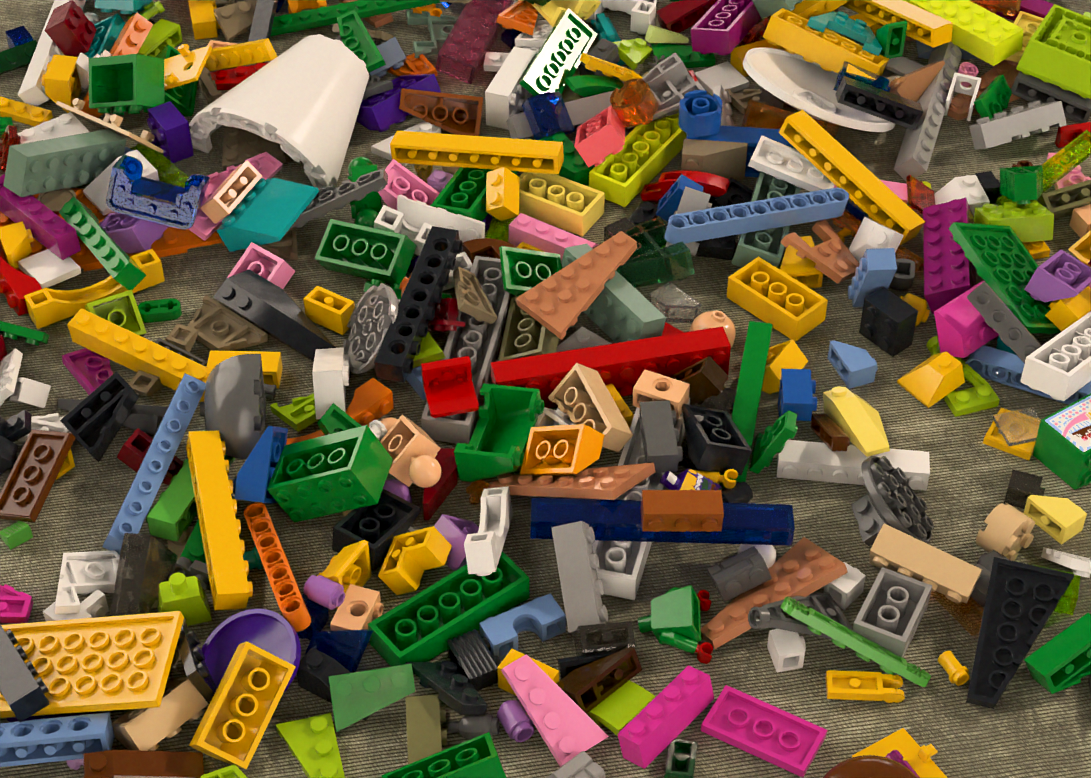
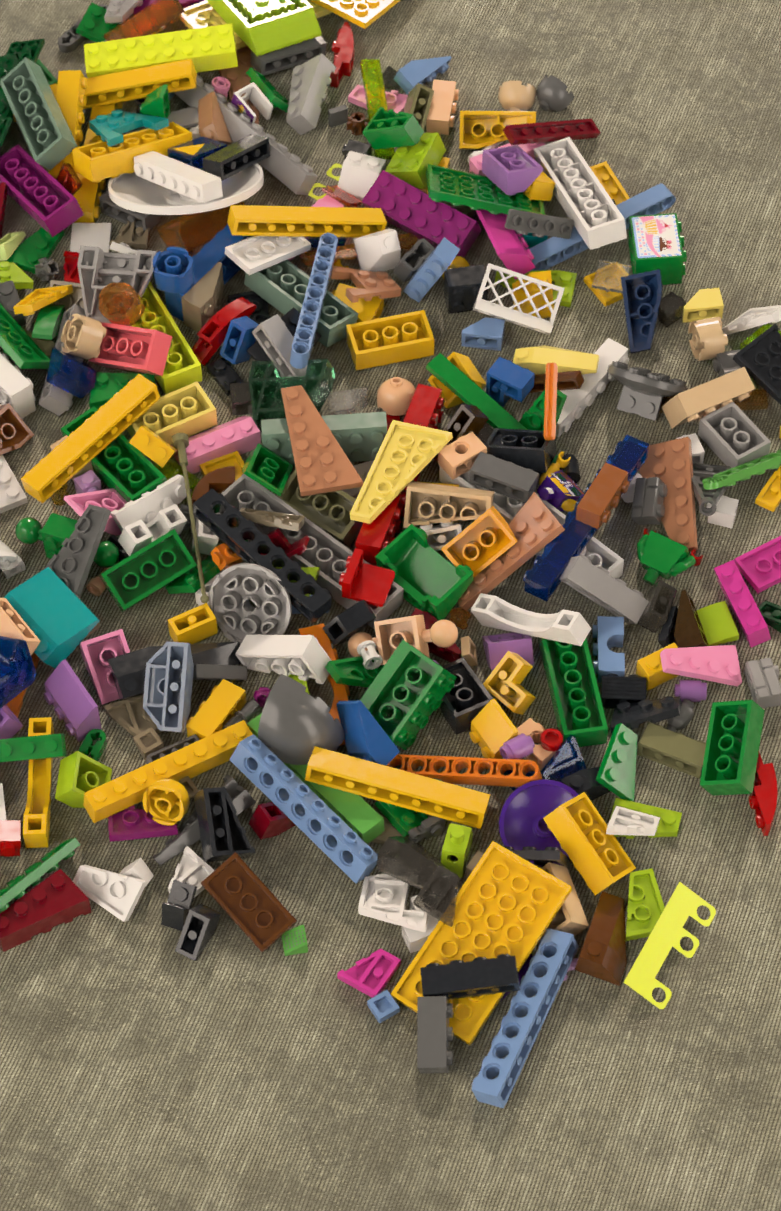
camera: 60 degrees left, 10 degrees up
(97, 602) = (439, 895): none -> clear smoke wing
(114, 359) = (166, 801): none -> yellow cylinder
(196, 274) = (72, 701): none -> medium lavender slope
(236, 317) = (169, 686): none -> sand blue wedge
(286, 393) = (258, 695): none -> magenta plate
(287, 347) = (219, 672): none -> dark grey piece
(291, 732) = (632, 823): none -> white wing
(358, 617) = (551, 739): none -> red tile
(395, 402) = (349, 622): none -> black slope
(436, 509) = (469, 651): none -> tan tile
(519, 207) = (181, 442): none -> olive piece
(584, 102) = (82, 337): none -> tan brick
(614, 347) = (399, 460): none -> light yellow wing
(771, 419) = (550, 401): none -> orange axle
(806, 71) = (178, 176): none -> white brick
(889, 373) = (514, 316): none -> white fence
(996, 458) = (641, 302): none -> dark blue wedge
(1017, 154) = (337, 115): none -> dark grey tile

